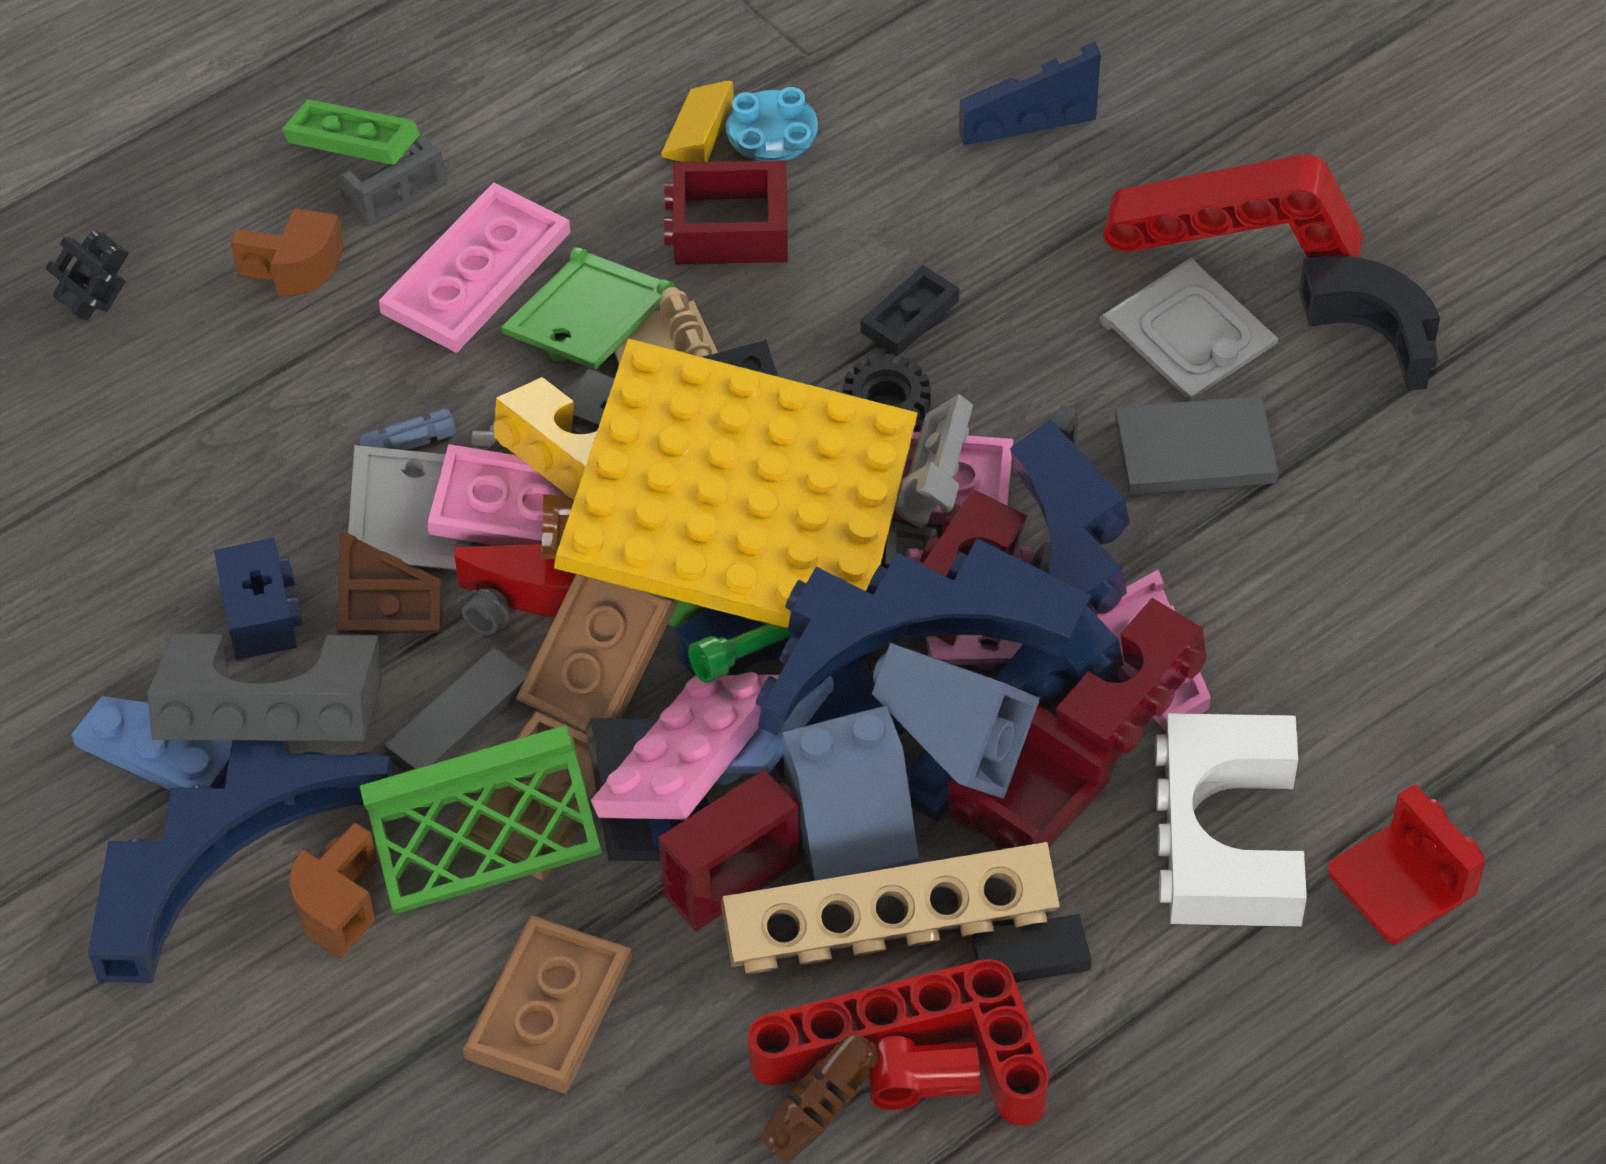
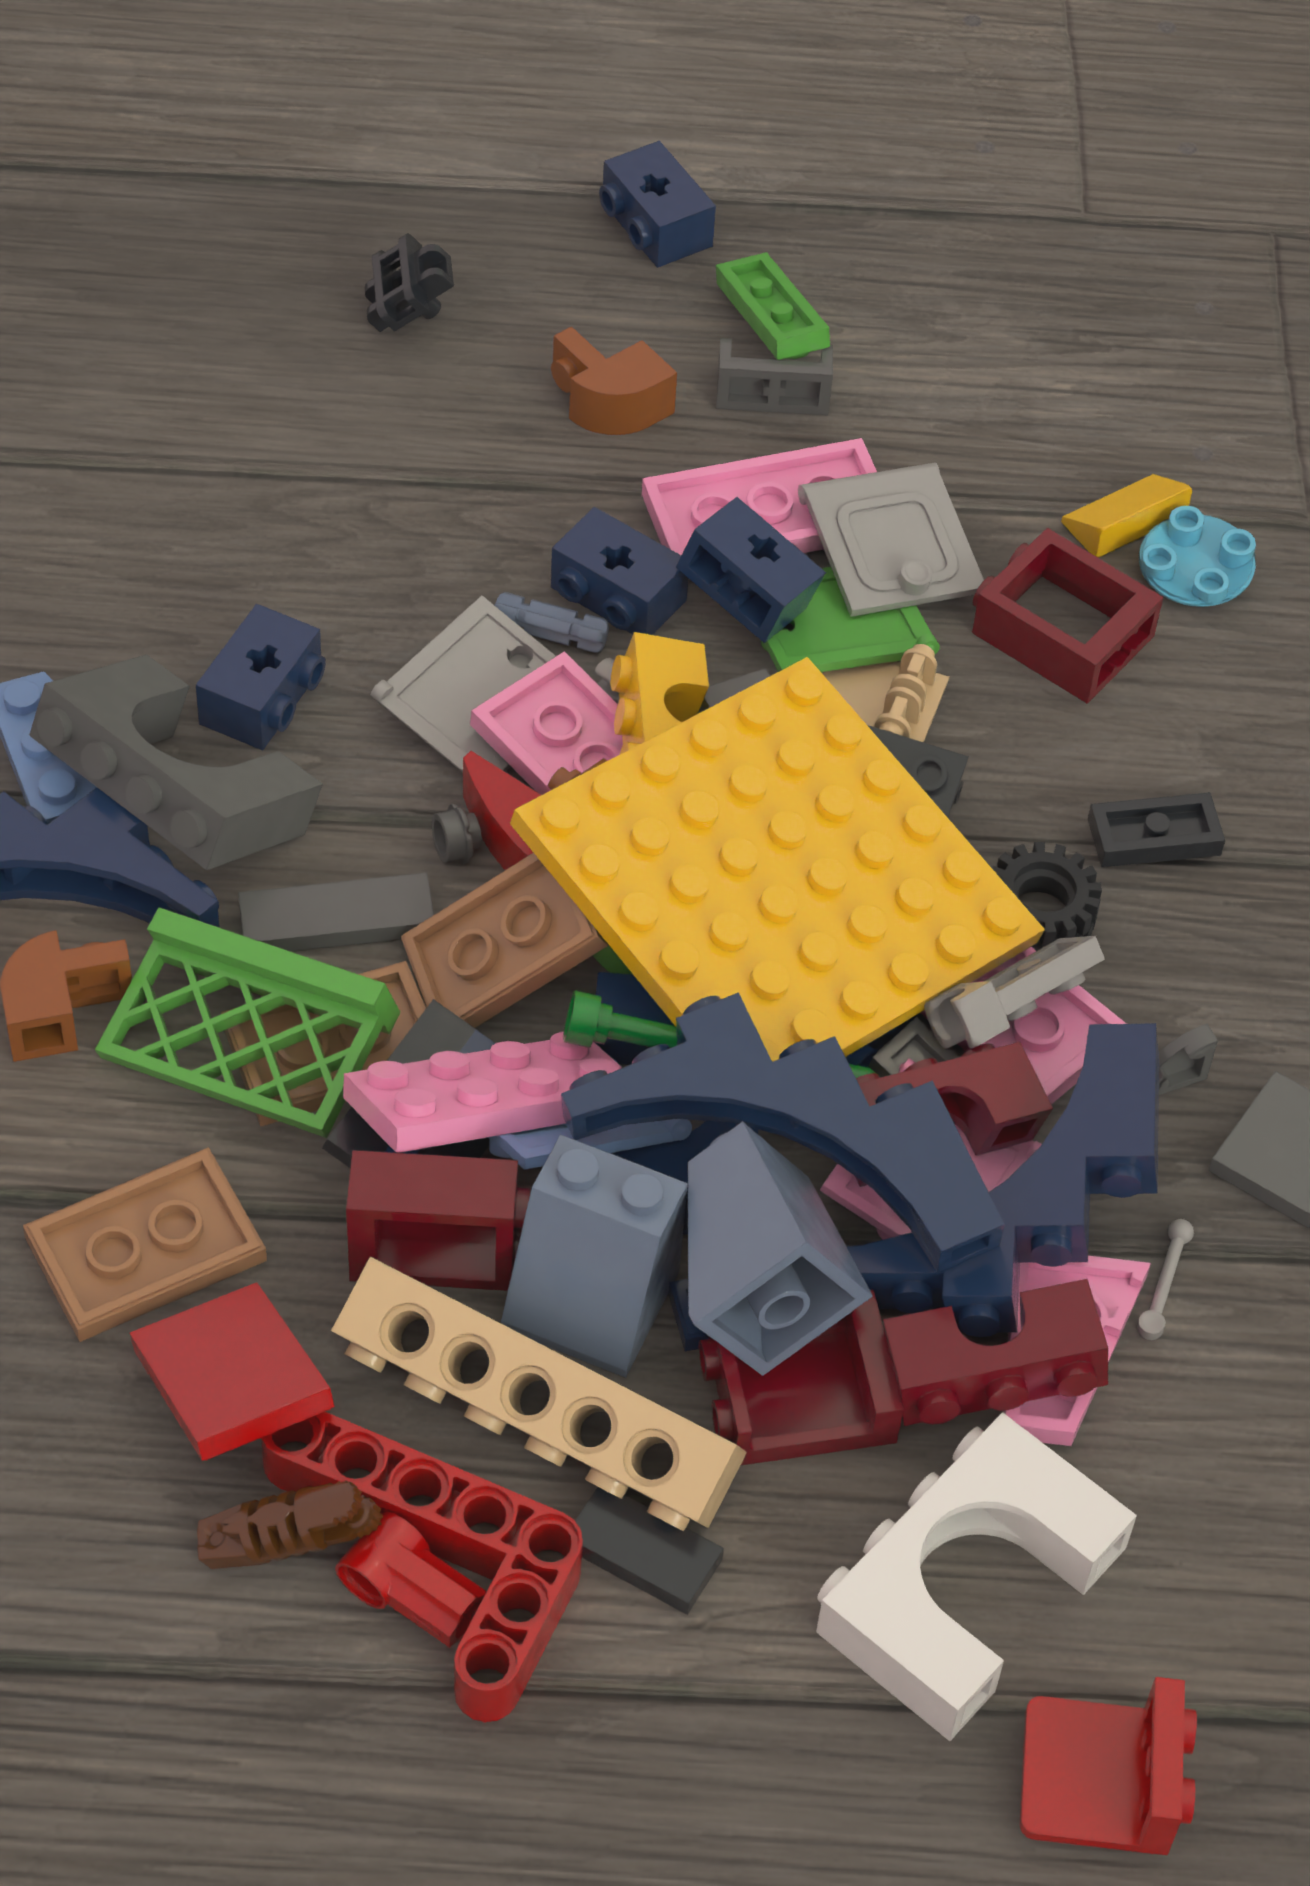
camera: 35 degrees right, 0 degrees up
(201, 111) = (657, 204): none -> dark blue brick
(384, 592) = (375, 749): reddish brown wing -> none
(424, 372) = (618, 573): none -> dark blue brick
(520, 311) = (750, 569): none -> brick
(571, 228) = (892, 538): none -> light grey container
(695, 1032) = (231, 1371): none -> red tile
(1183, 605) = (1152, 1322): none -> light grey hinge

